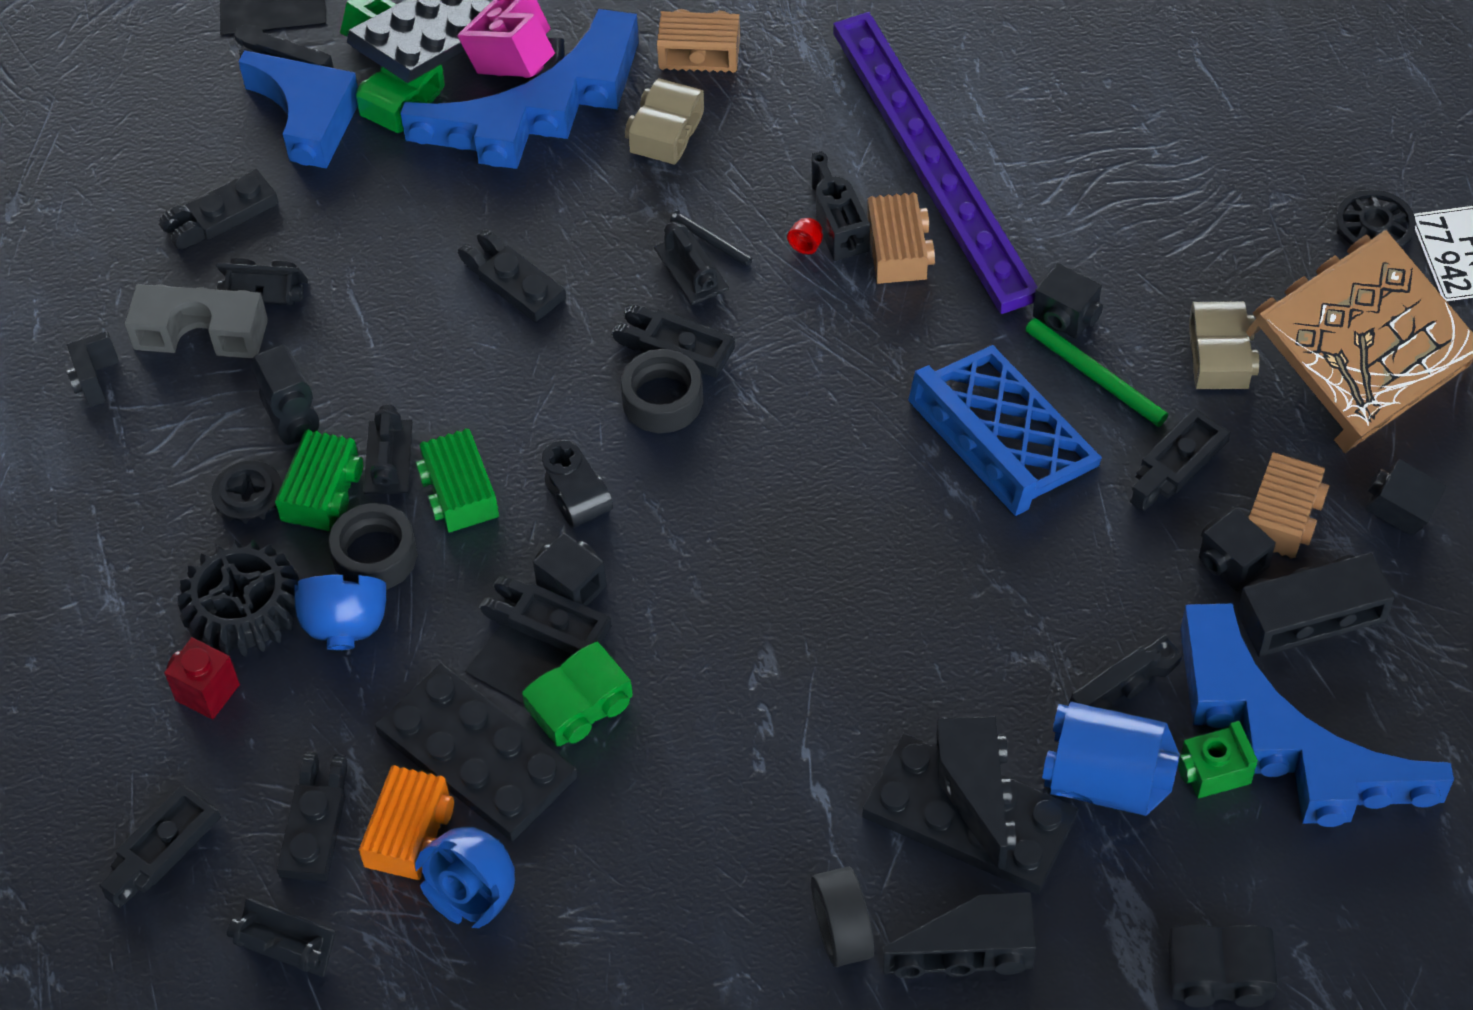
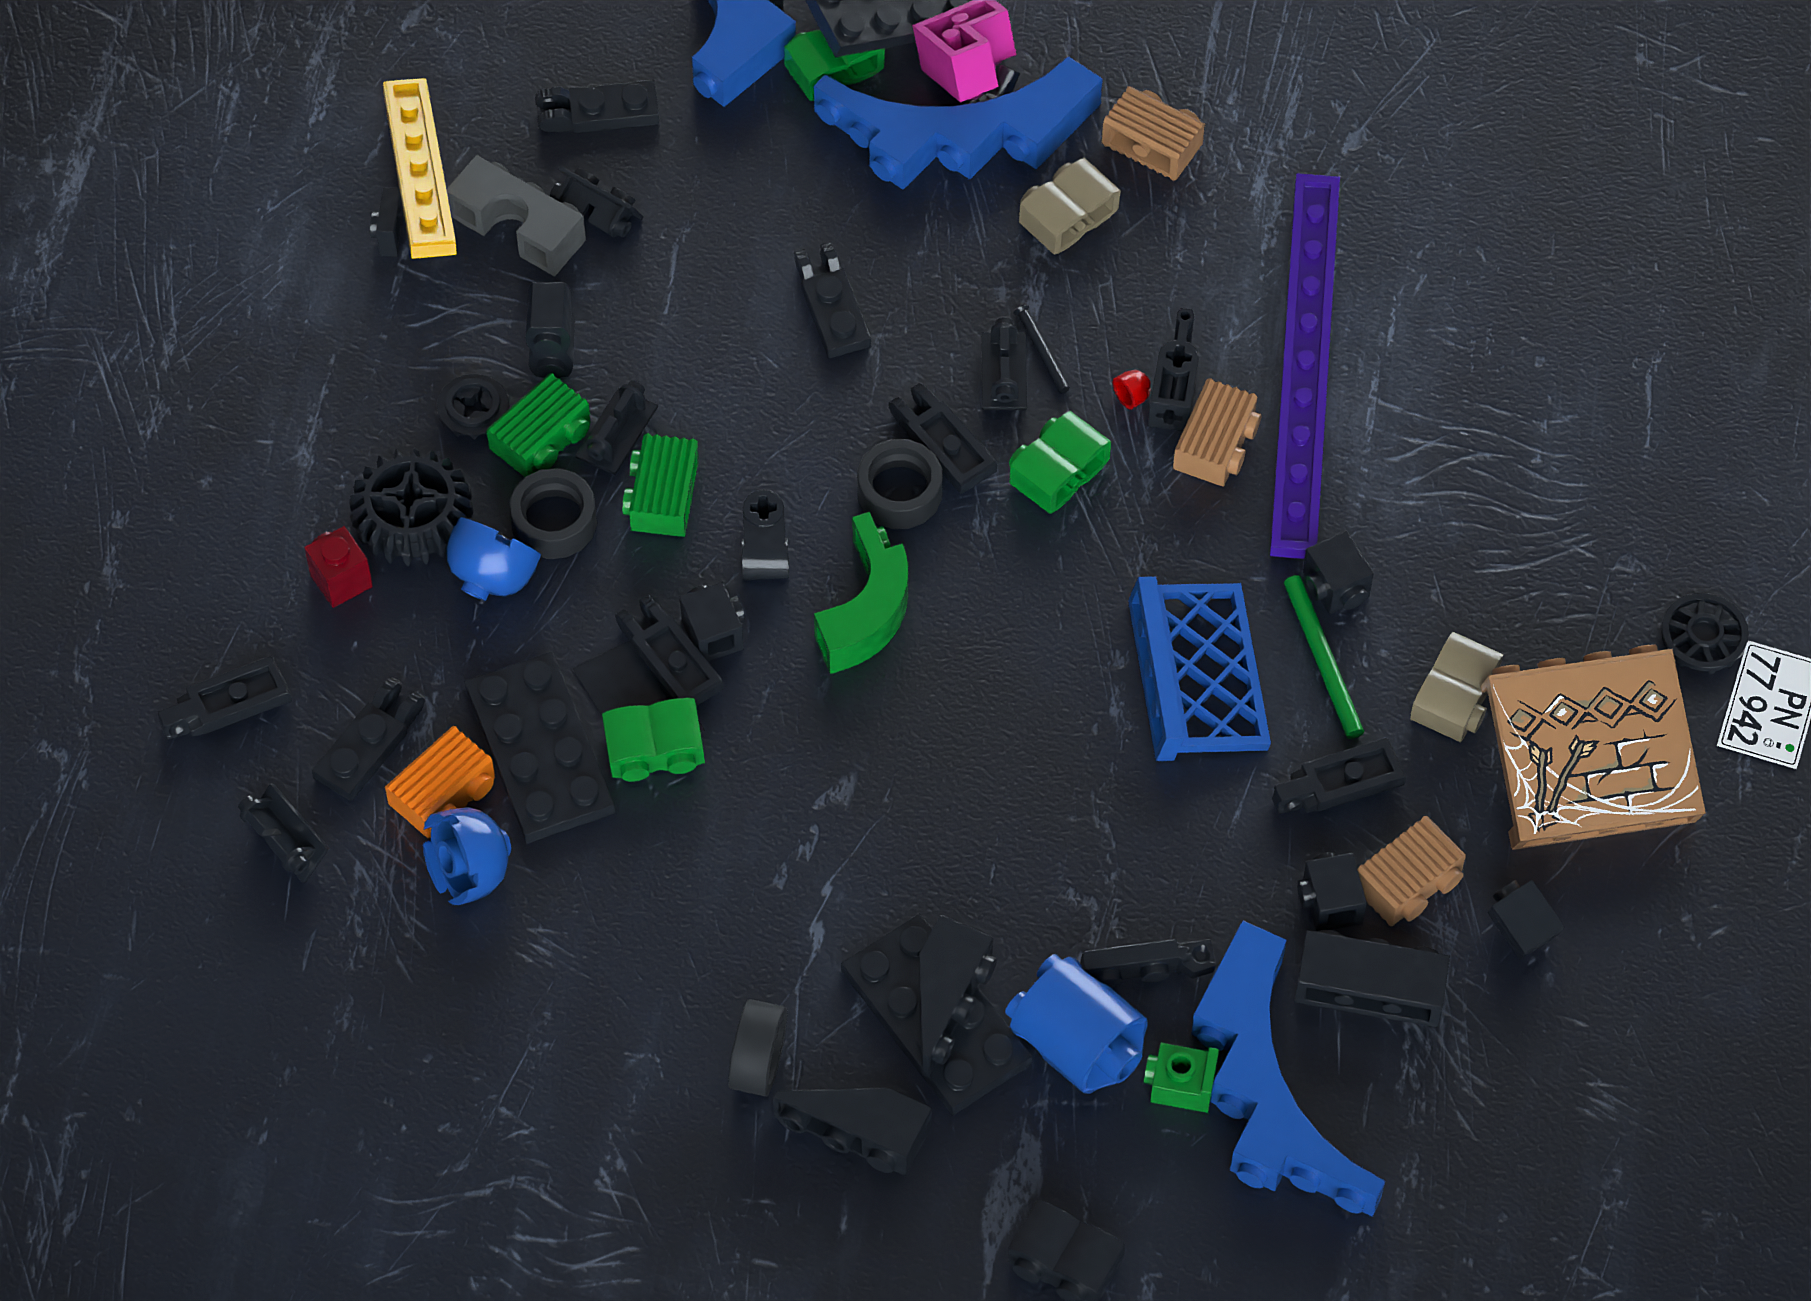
camera: 25 degrees right, 5 degrees up
(92, 316) = (419, 168): none -> yellow tile
(702, 519) = (870, 620): none -> green arch
(783, 315) = (1059, 461): none -> green brick

